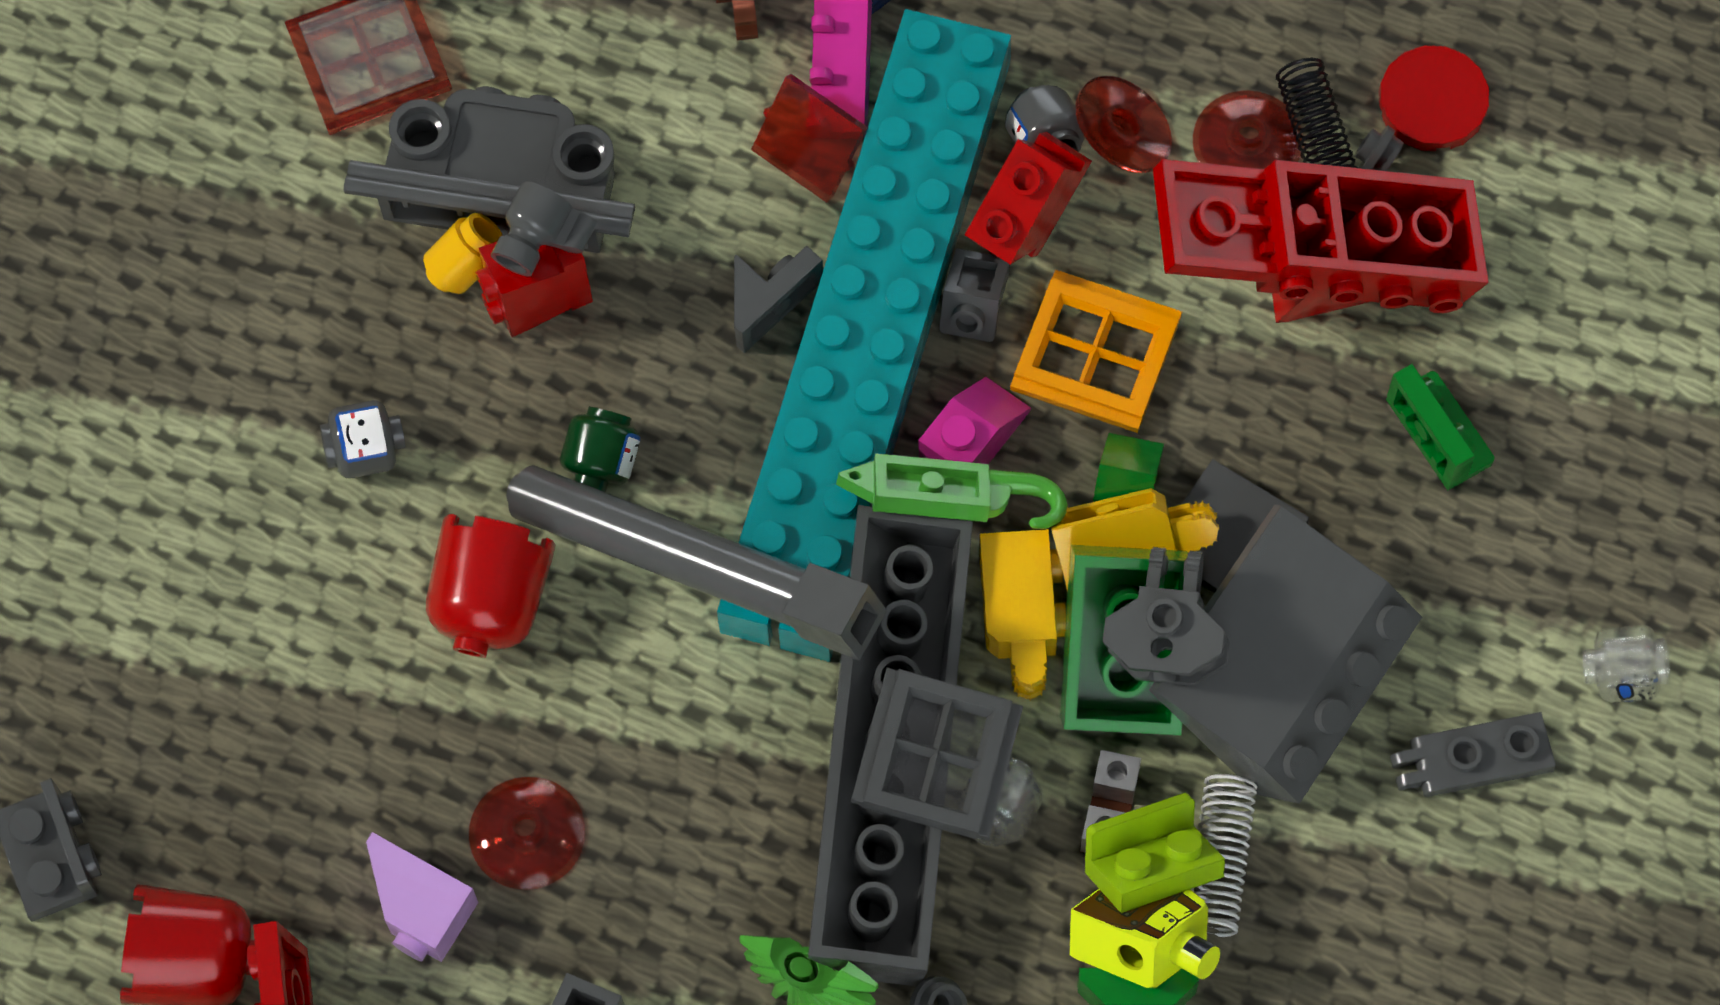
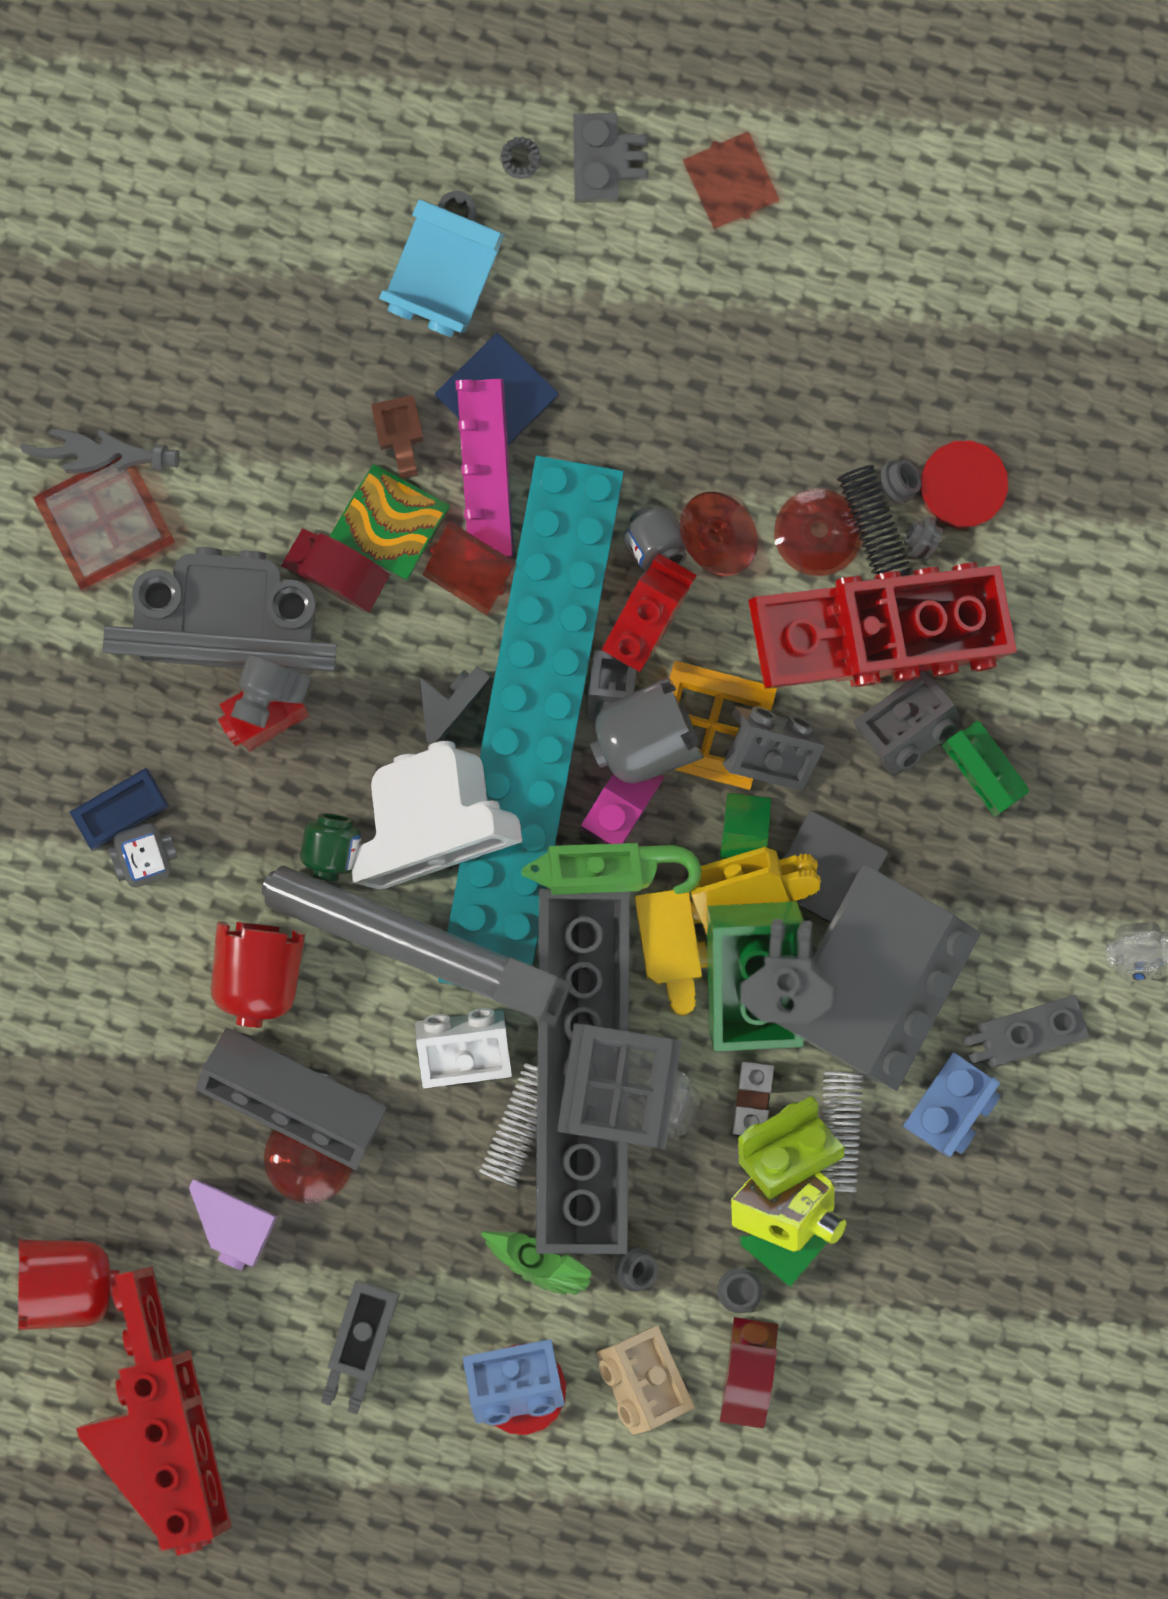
camera: 10 degrees left, 15 degrees up
(342, 382) = (119, 809): none -> dark blue tile
(456, 255) = (203, 691): yellow brick -> none
(512, 747) = (291, 1098): none -> dark grey brick
(649, 125) = (336, 569): none -> dark red brick
(715, 83) = (390, 521): none -> slope
(726, 416) = (430, 817): none -> white brick
(740, 710) = (462, 1048): none -> white bracket
(786, 882) = (506, 1179): none -> white piece
(1010, 337) = (645, 734): none -> dark grey cylinder
(1171, 378) = (773, 748): none -> dark grey bracket
(1345, 366) = (909, 723): none -> dark grey bracket
(1354, 84) = (900, 480): none -> dark grey plate
(1369, 837) = (952, 1106): none -> medium blue bracket

